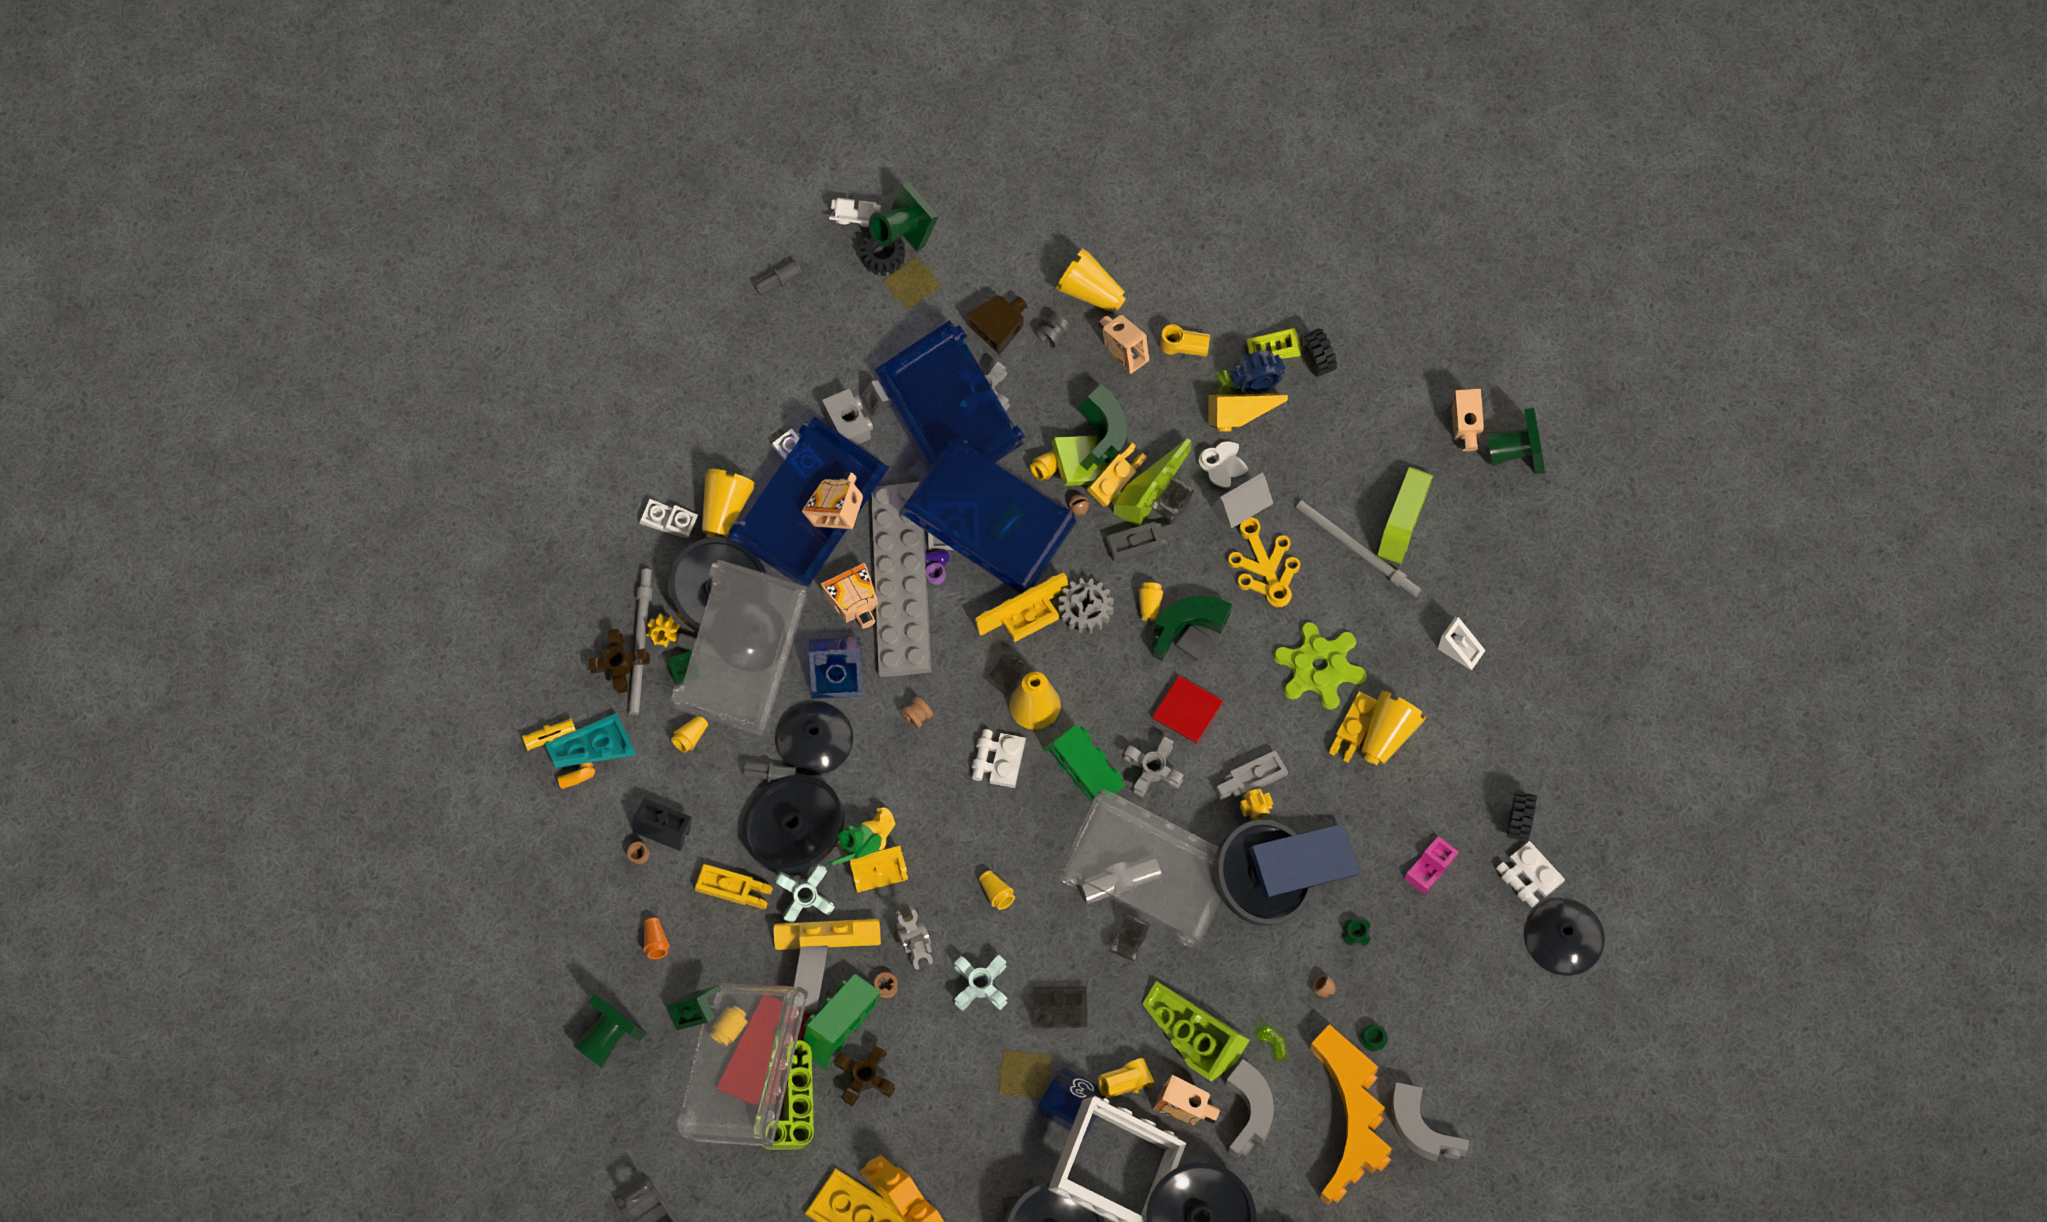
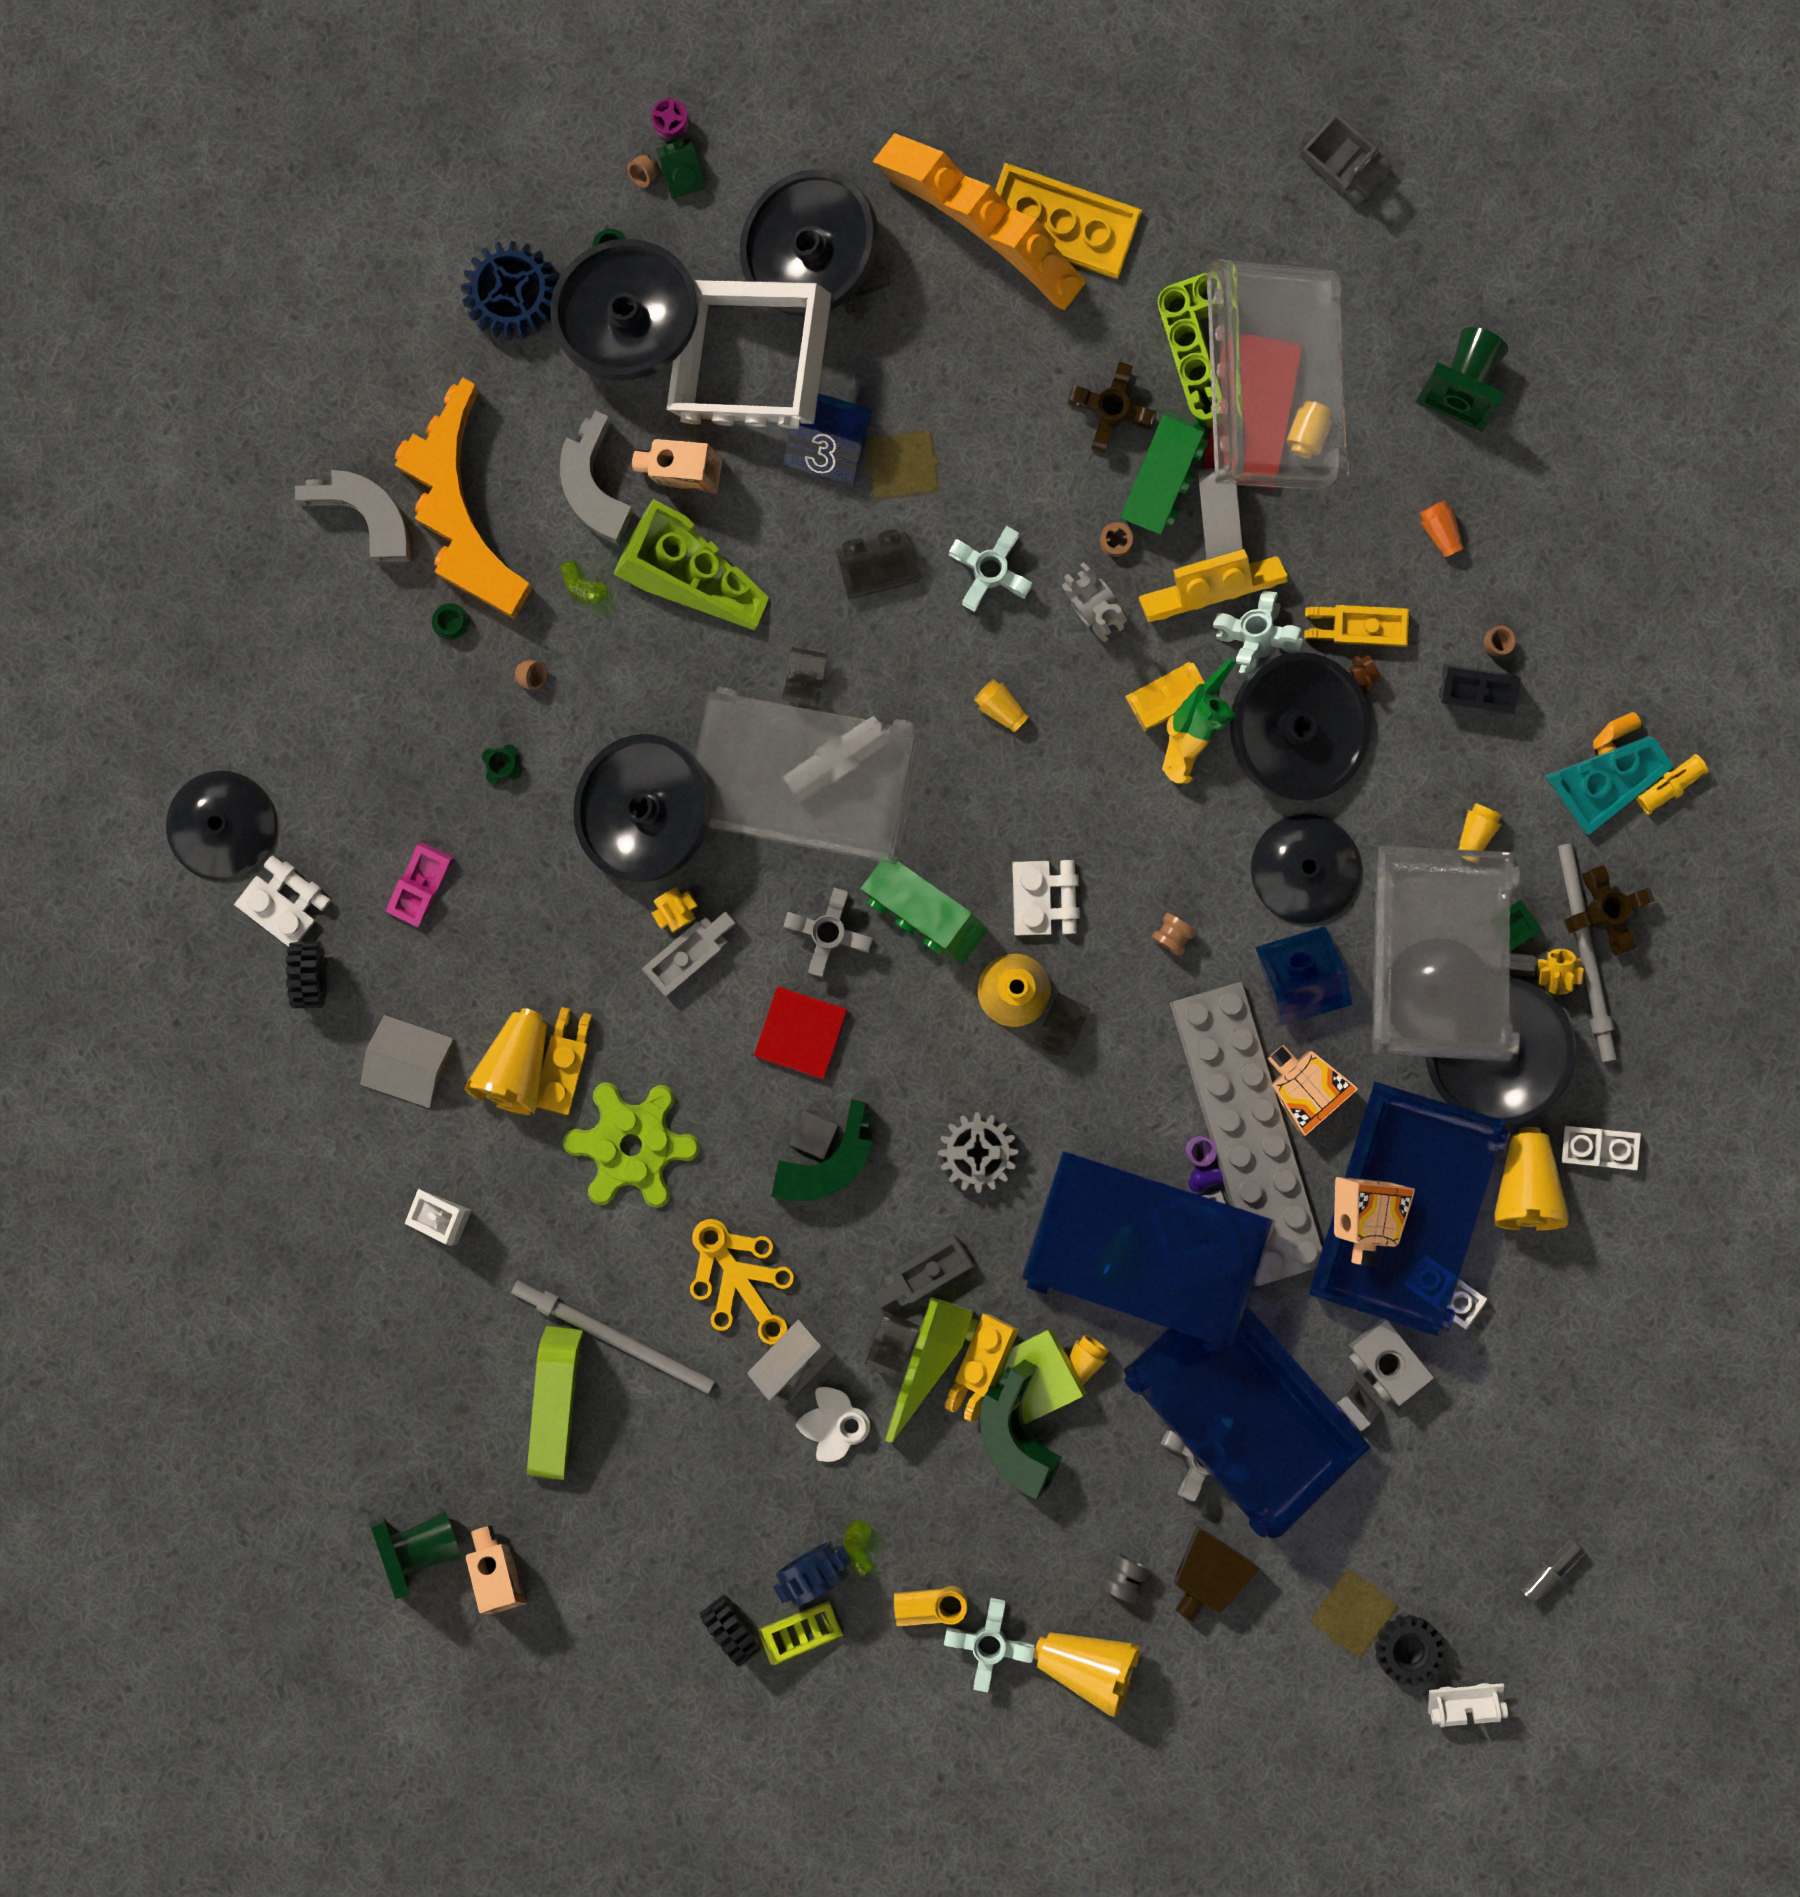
camera: 170 degrees right, 20 degrees up
(692, 1008) = (1367, 439): dark green panel -> none
(737, 853) = (1365, 672): none -> reddish brown plate
(766, 771) = (1354, 801): dark grey axle -> none
(908, 218) = (1388, 1707): dark green plant -> none
(1025, 612) = (1056, 1120): yellow bracket -> none
(1080, 508) = (1018, 1305): medium nougat hinge -> none
(1120, 337) = (1014, 1577): light nougat torso -> none
(1129, 1078) = (761, 484): yellow piece -> none
(1150, 599) = (889, 1182): yellow cone -> none
(1156, 303) = (967, 1640): none -> light aqua pin
(1238, 409) = (824, 1514): yellow slope -> none
(1304, 861) = (591, 837): dark blue tile -> none
(1462, 752) = (405, 1061): none -> light grey slope

